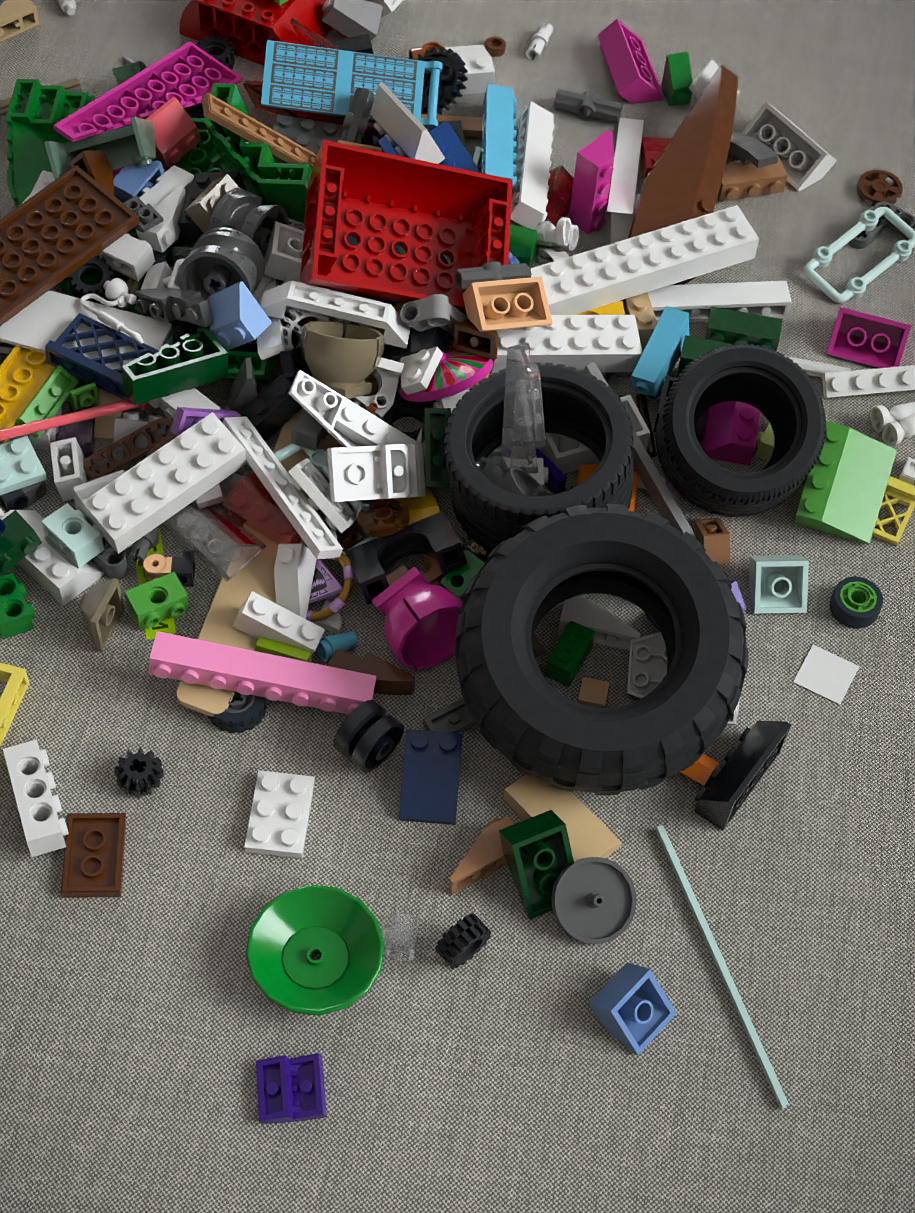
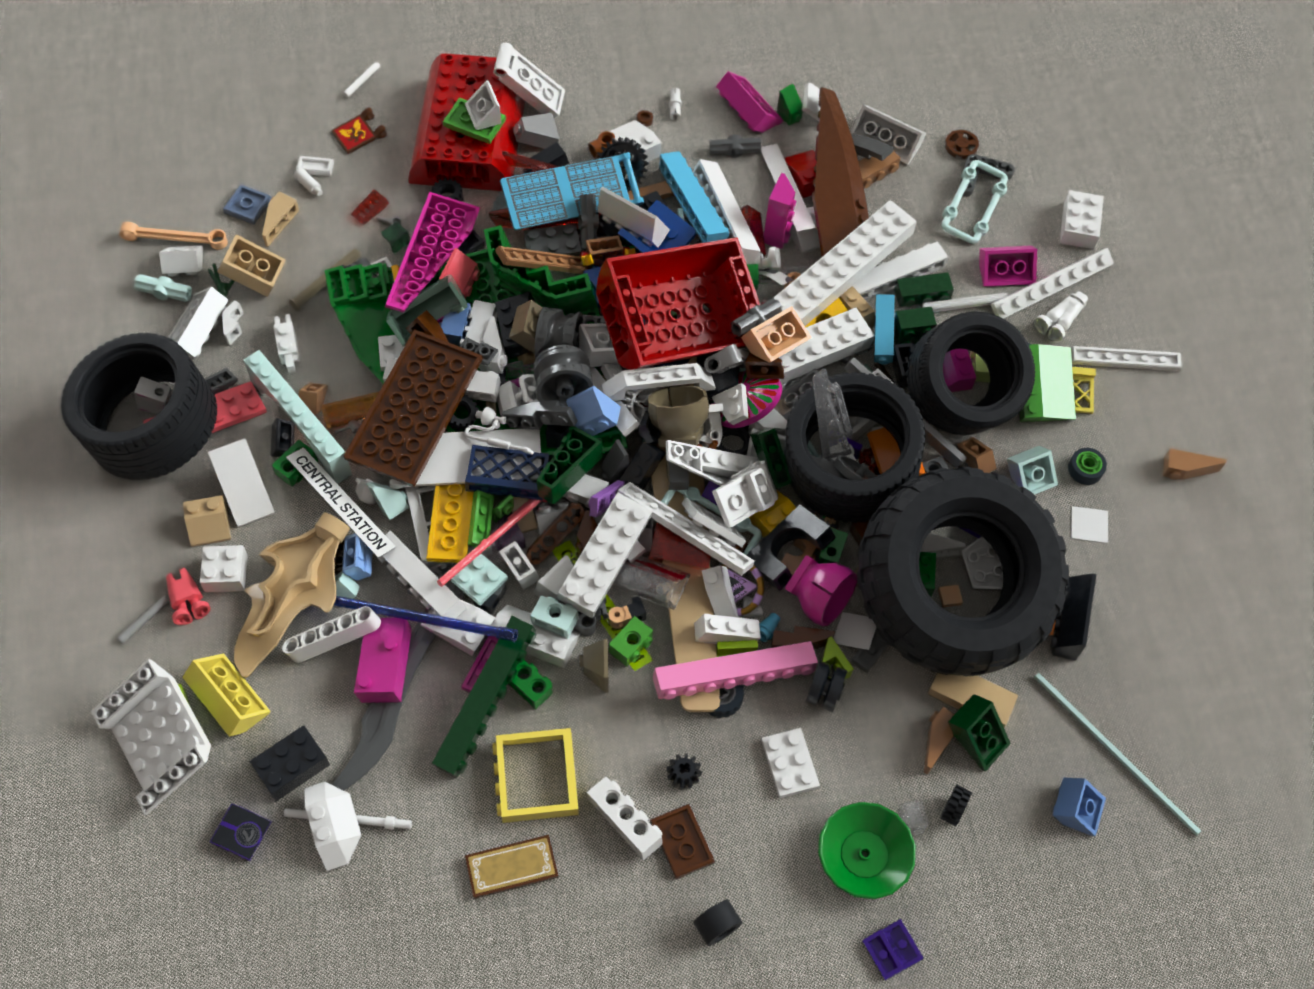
camera: 20 degrees left, 5 degrees up
(78, 962) = (718, 922): none -> black piece
(126, 41) = (378, 207): none -> clear red slope
(380, 518) = (760, 523): reddish brown piece -> none
(400, 707) = (834, 655): none -> lime slope
(430, 777) = (876, 698): dark blue slope -> none
(441, 690) = (855, 631): none -> white sticker
(594, 900) = (1023, 743): dark grey piece -> none

